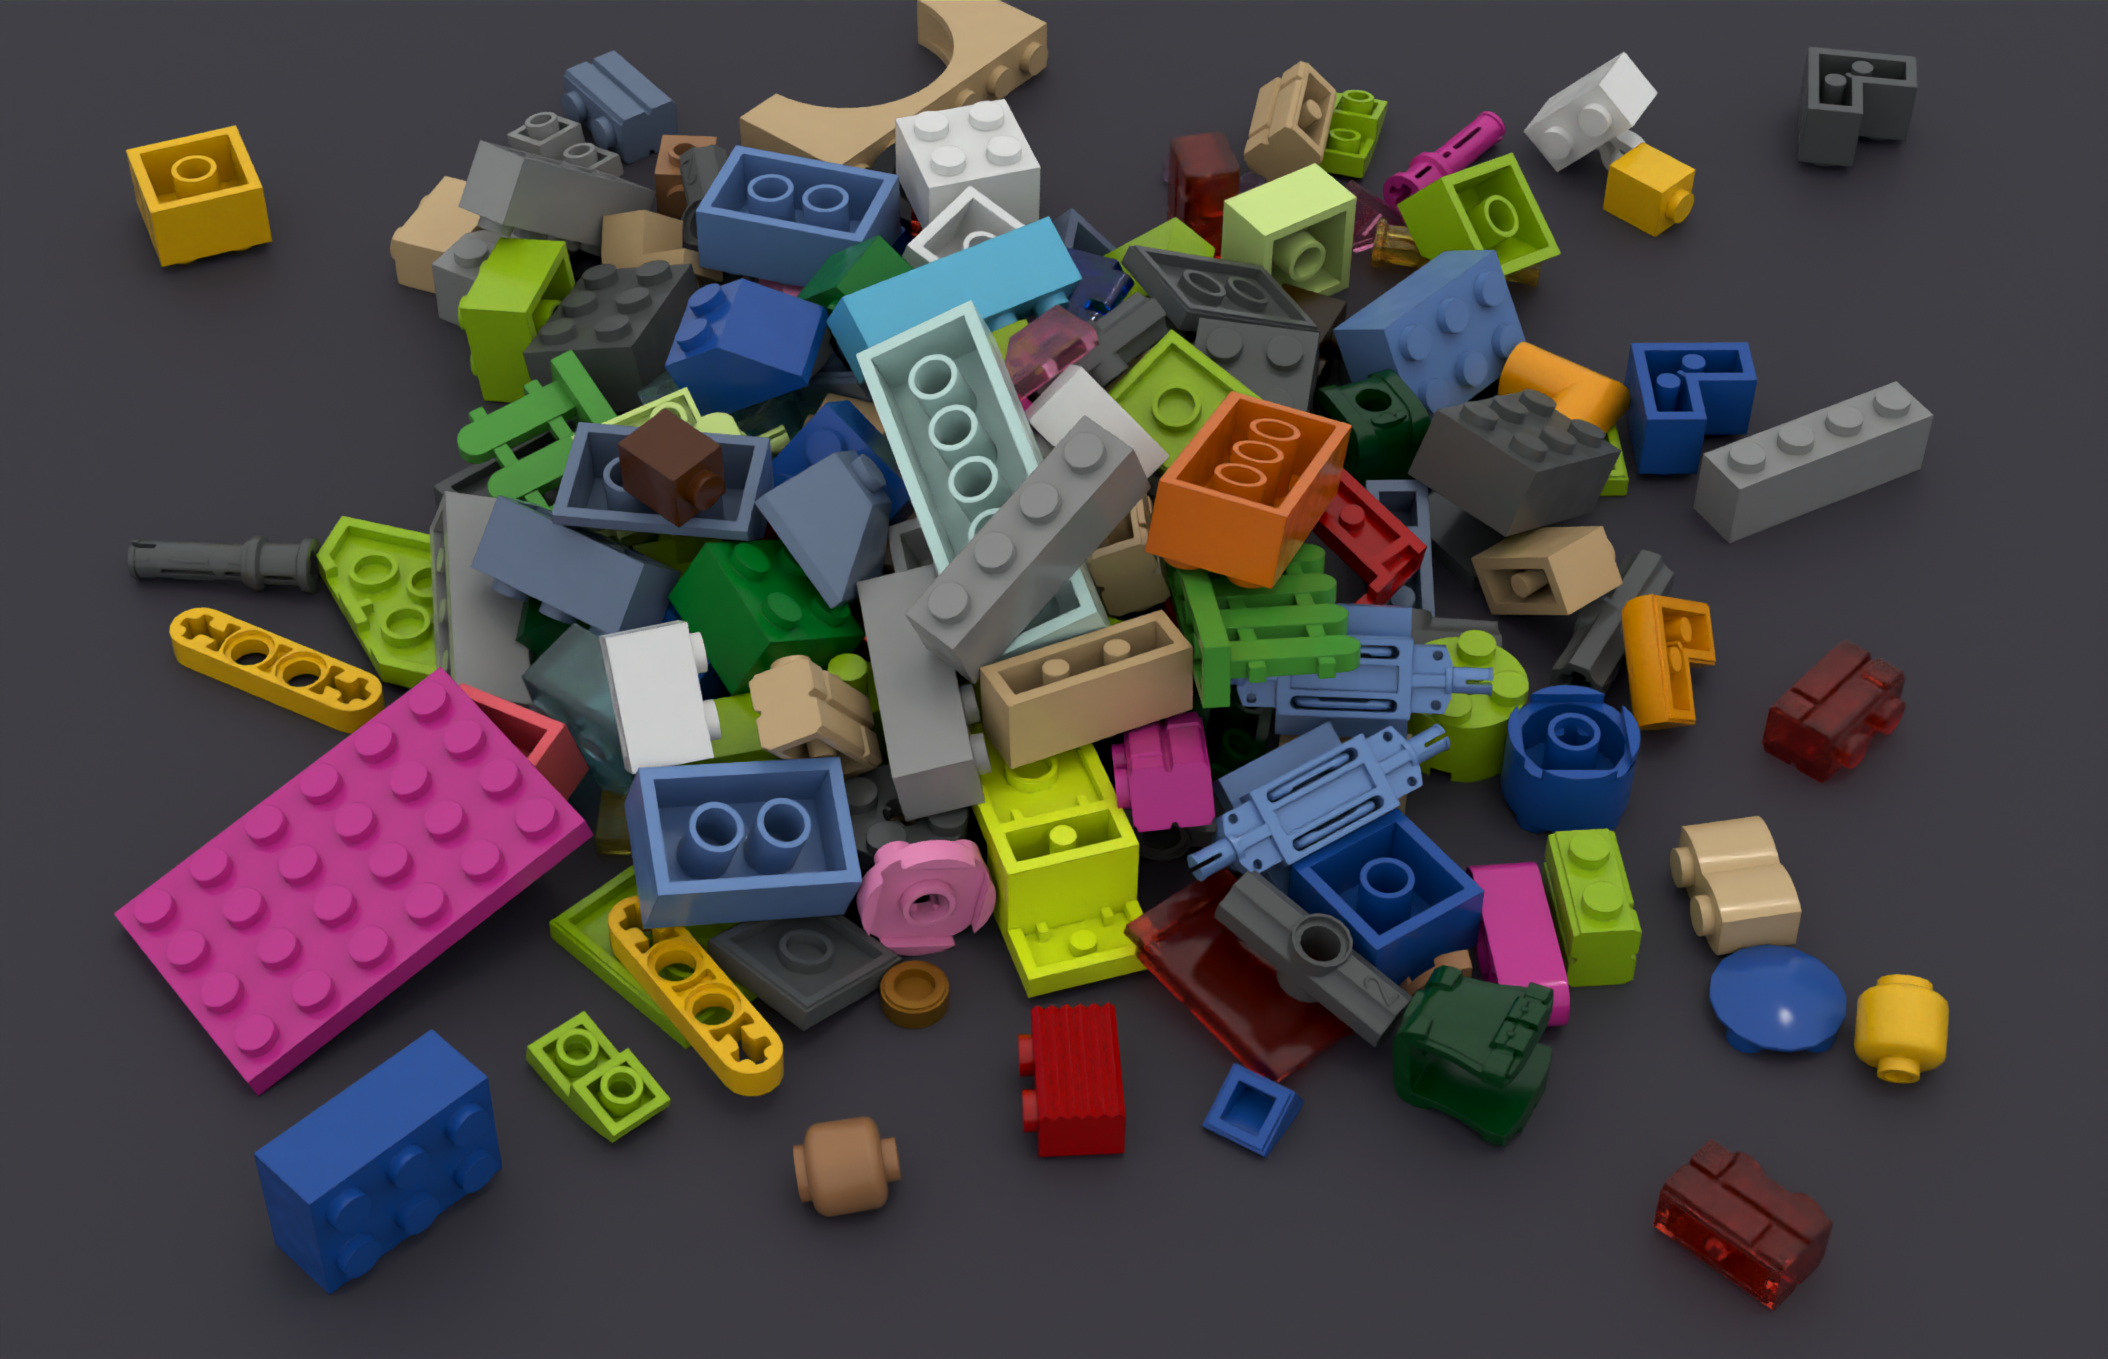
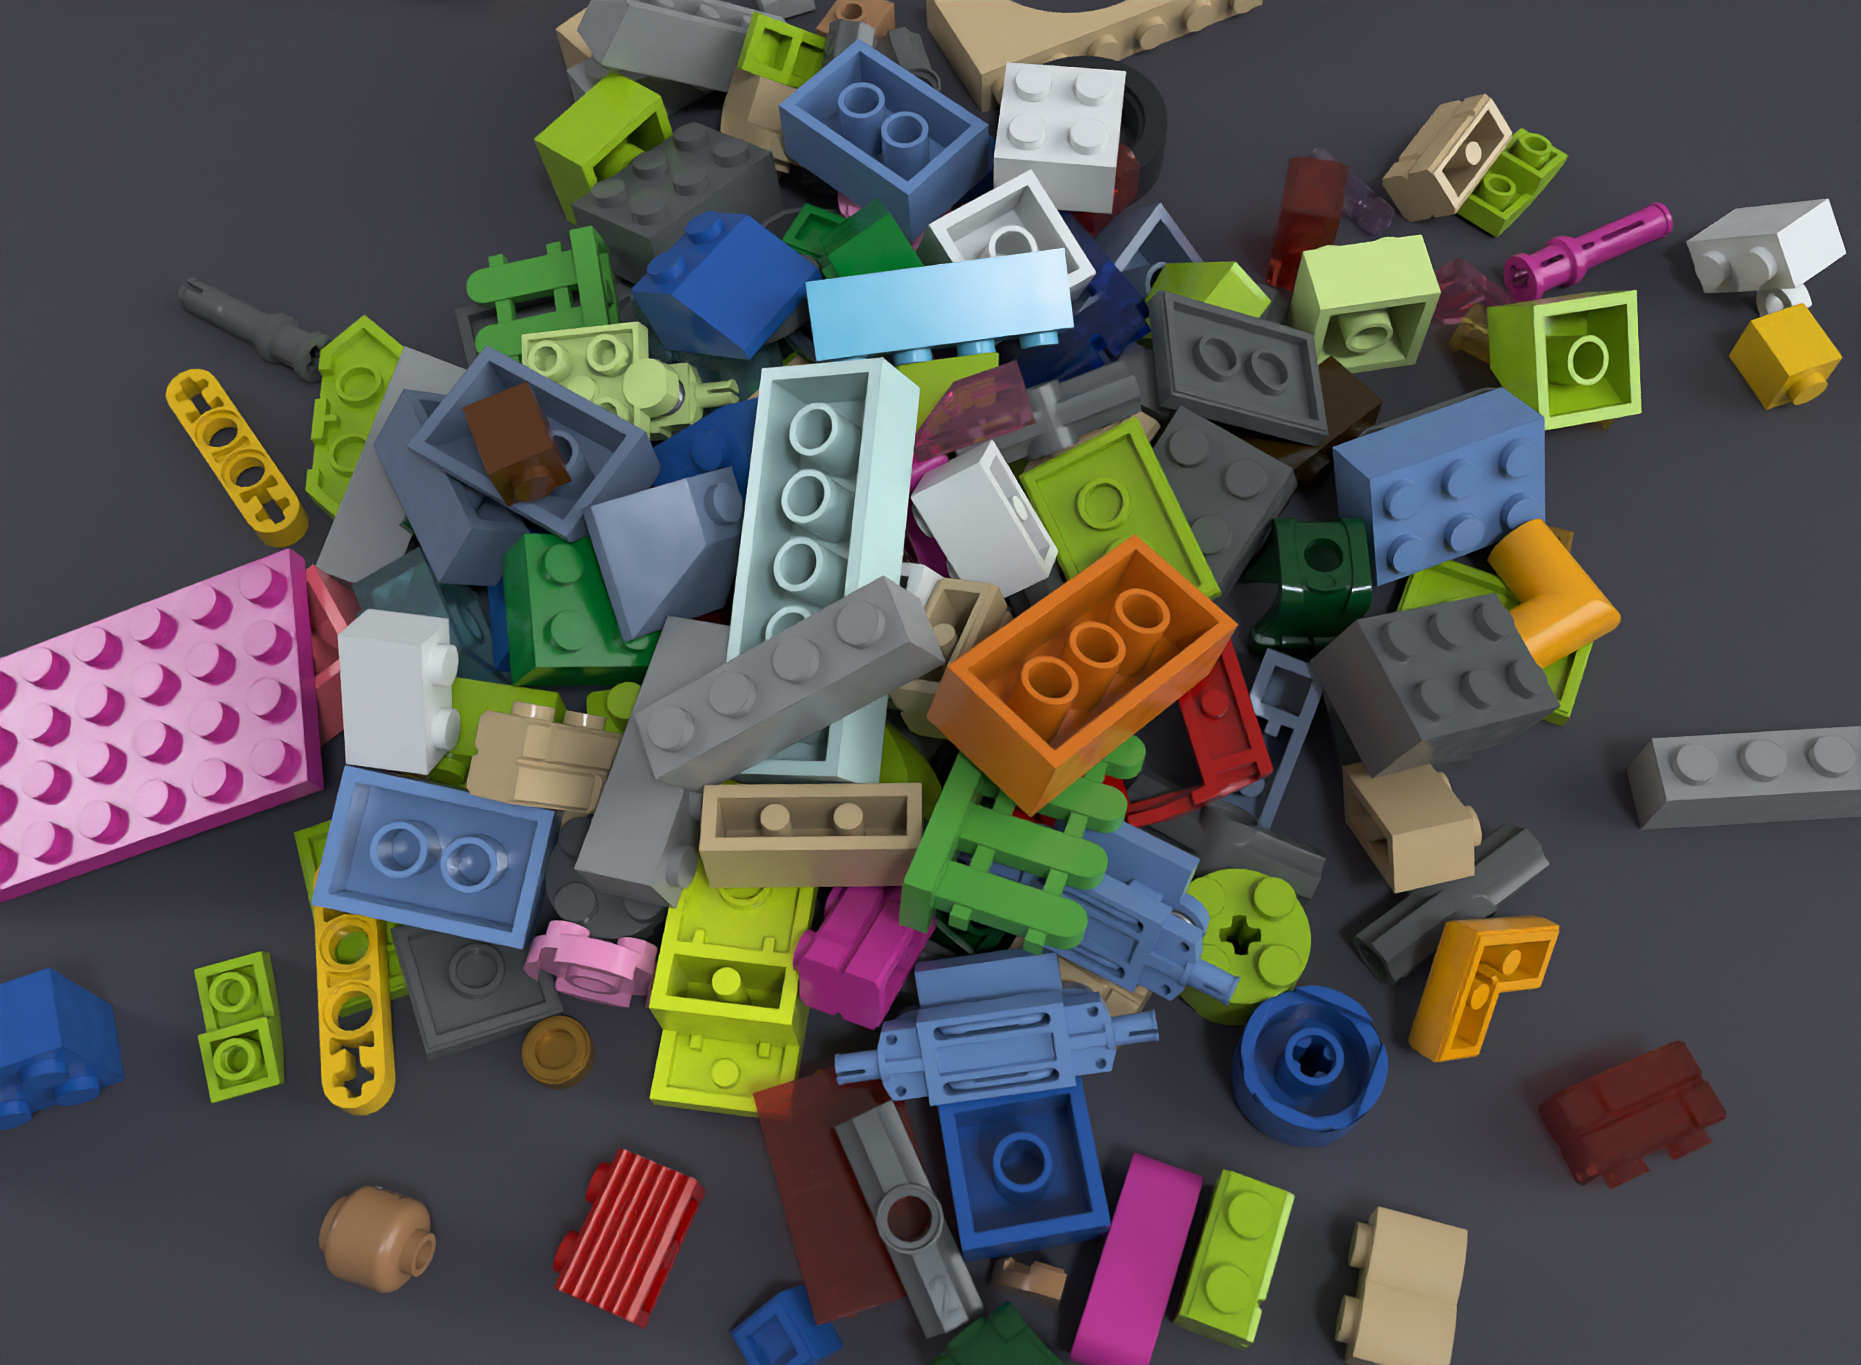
camera: 30 degrees right, 20 degrees up
(648, 186) = (781, 51): none -> lime slope
(1683, 395) = (1674, 638): blue brick -> none

